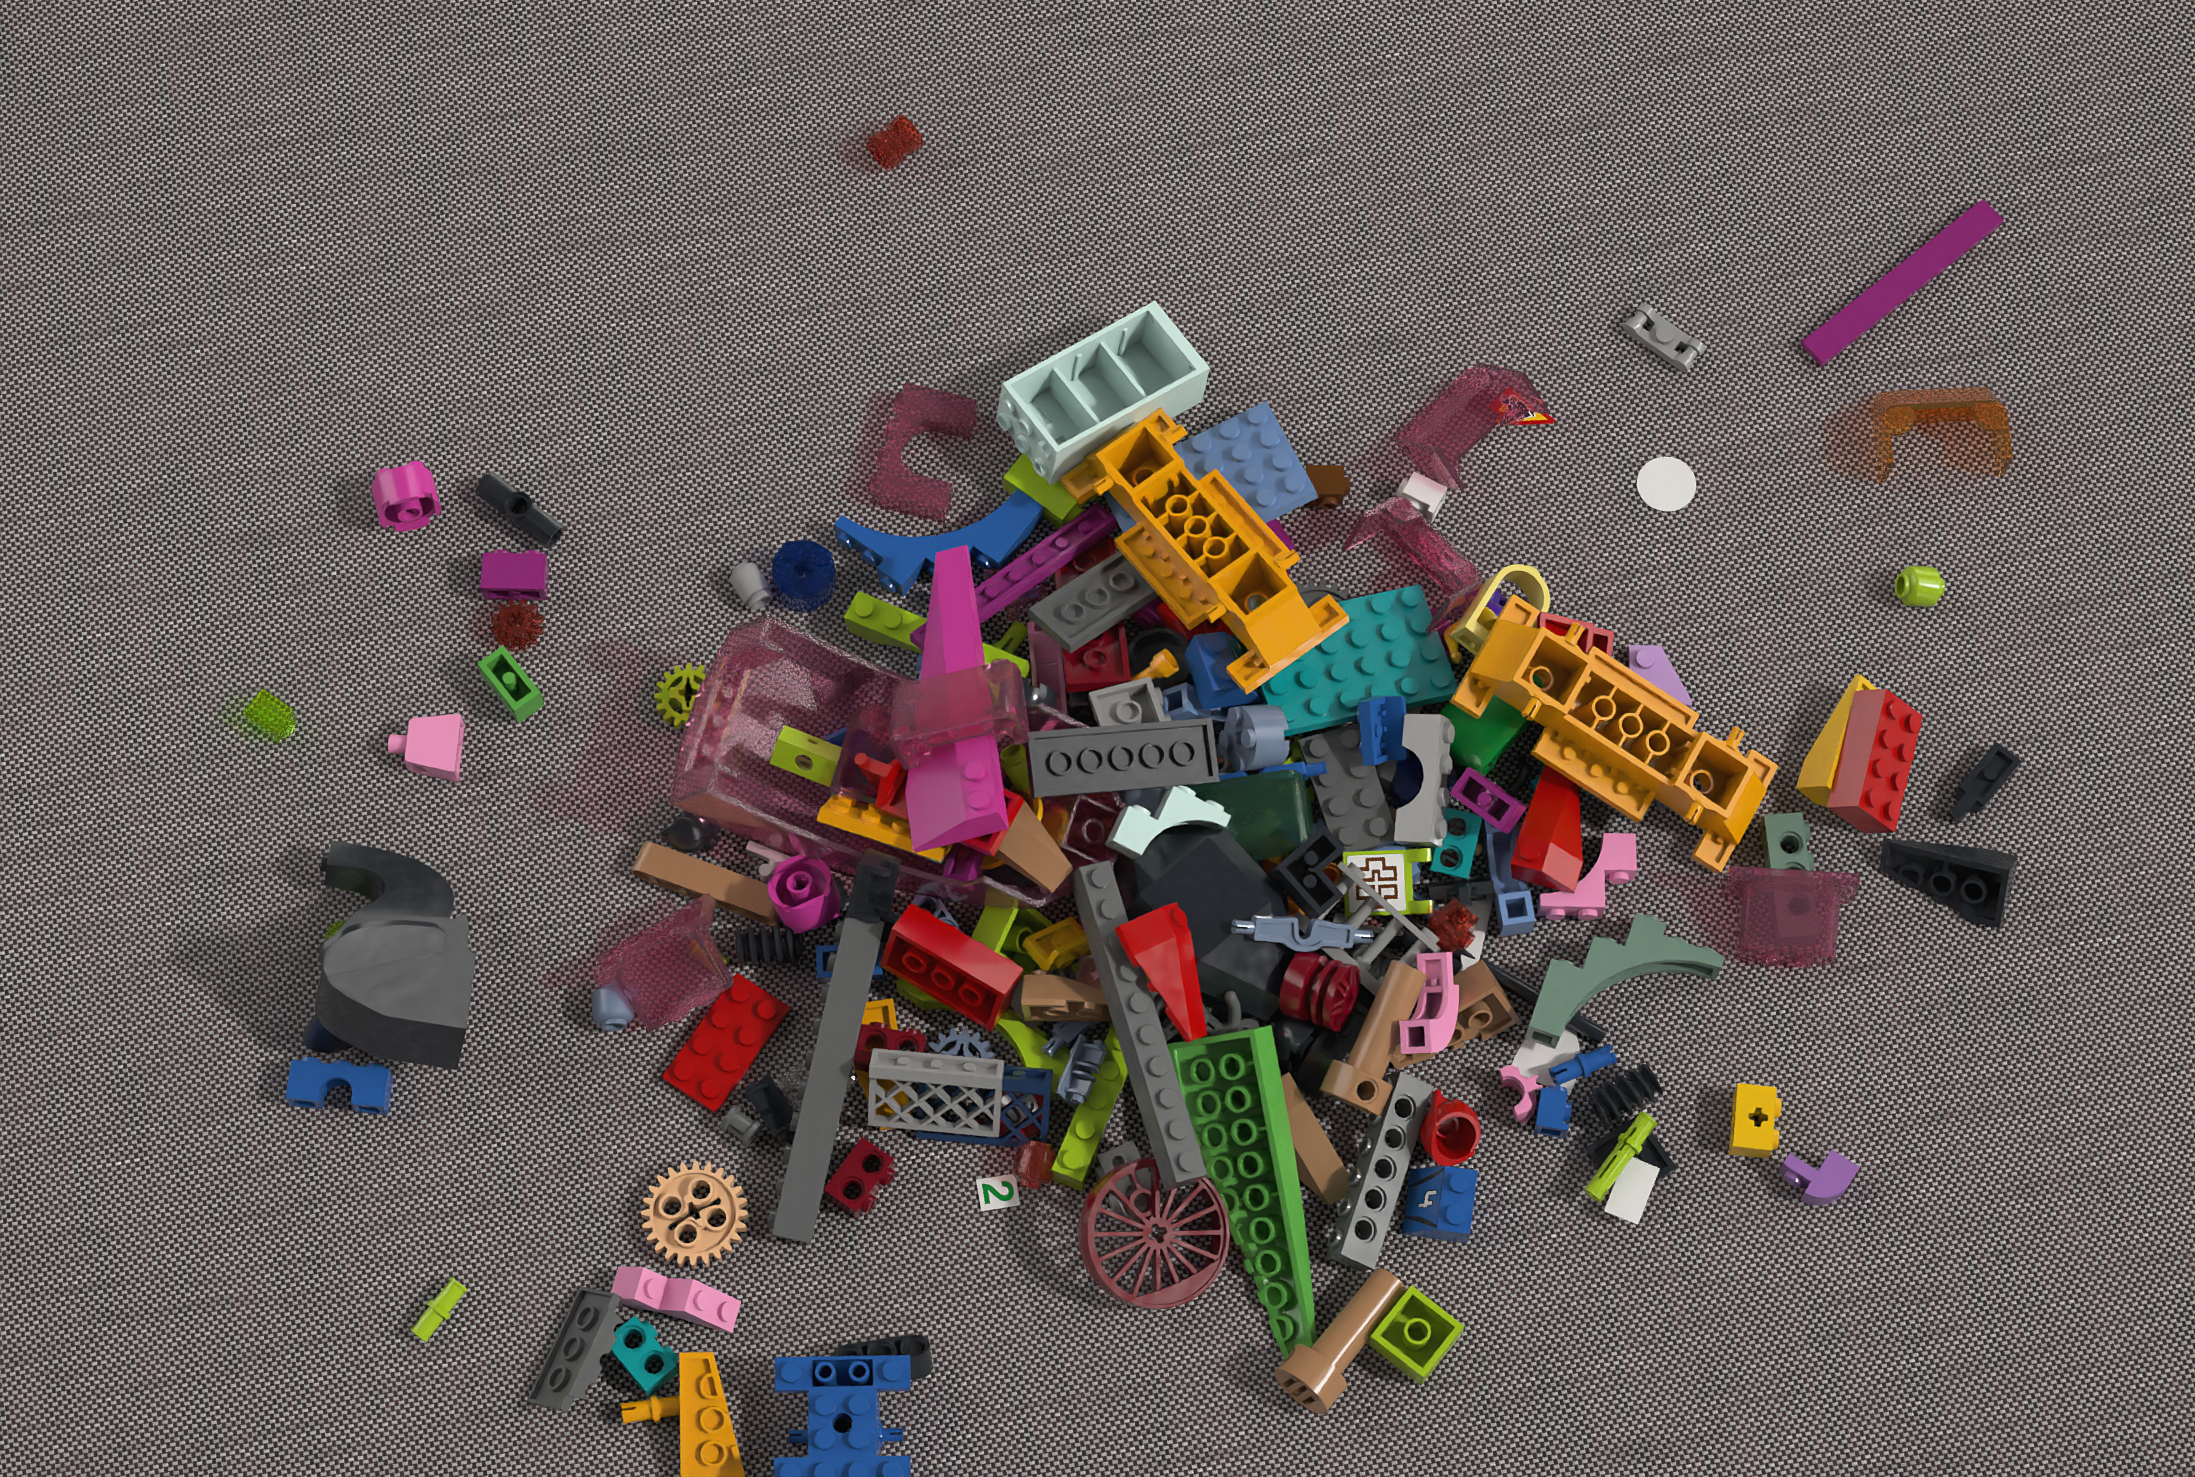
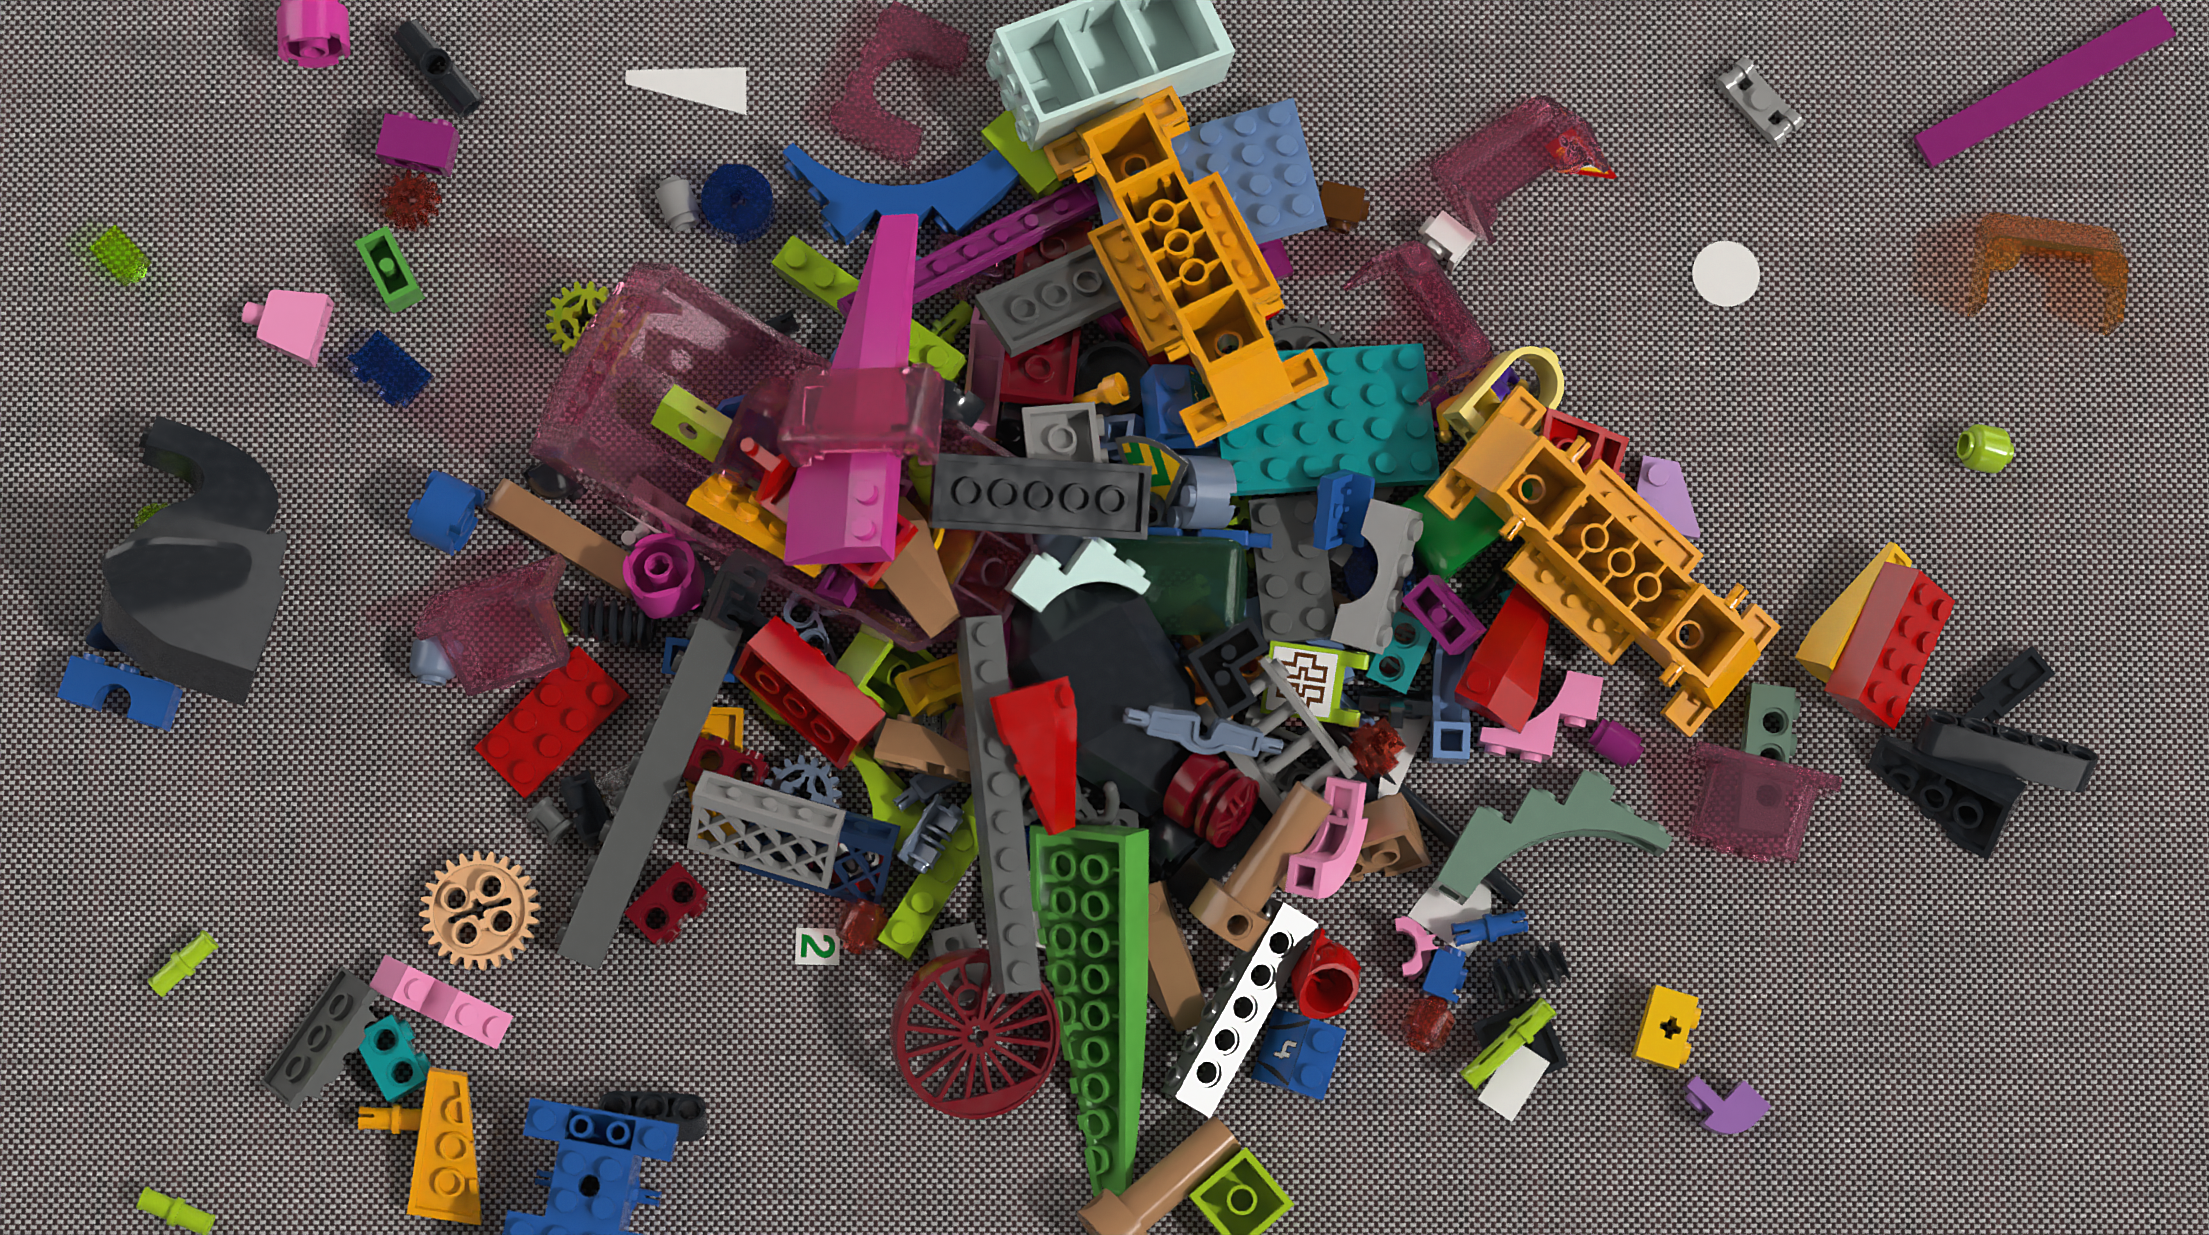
camera: 10 degrees right, 10 degrees up
(525, 769) = (390, 369): none -> clear blue bracket
(600, 878) = (445, 512): none -> blue brick
(763, 484) = (710, 86): none -> white sticker
(1224, 717) = (1166, 464): none -> sticker
(1546, 1156) = (1427, 1024): none -> clear red head
(1658, 888) = (1616, 743): none -> magenta brick
(1994, 831) = (2006, 750): none -> black beam

